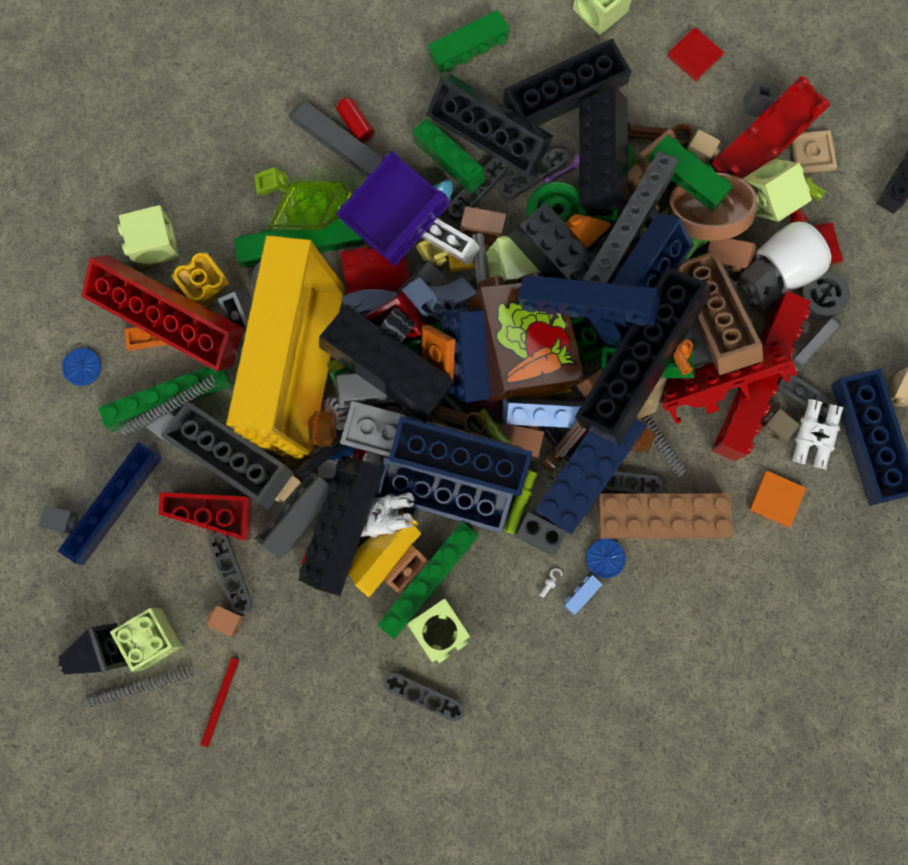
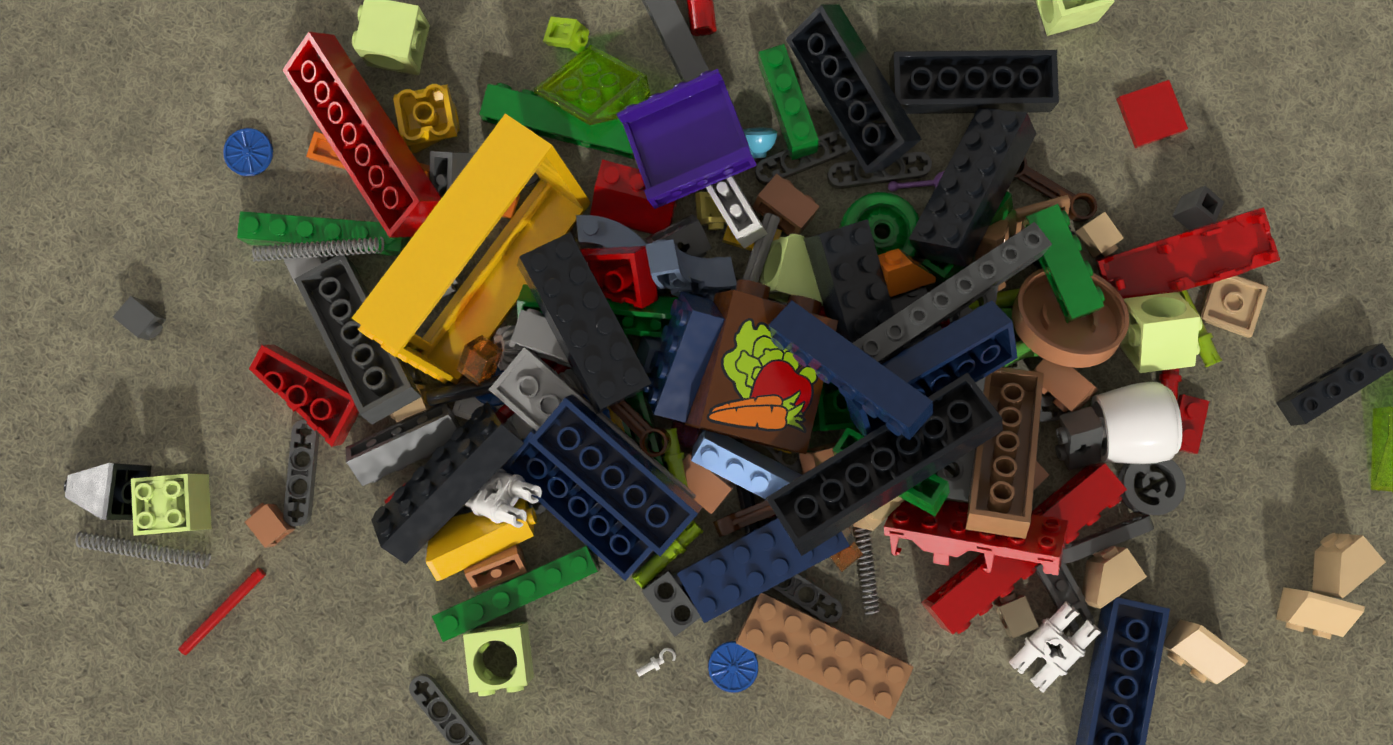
camera: 30 degrees right, 5 degrees up
(109, 504) = (203, 329): clear blue brick -> none
(397, 325) = (618, 285): black piece -> none
(438, 349) = (651, 337): orange tile -> none
(582, 594) = (685, 695): light blue piece -> none
(682, 355) = (930, 487): orange arm -> none
(777, 499) = (968, 697): orange tile -> none
(829, 366) = (1110, 575): none -> tan slope

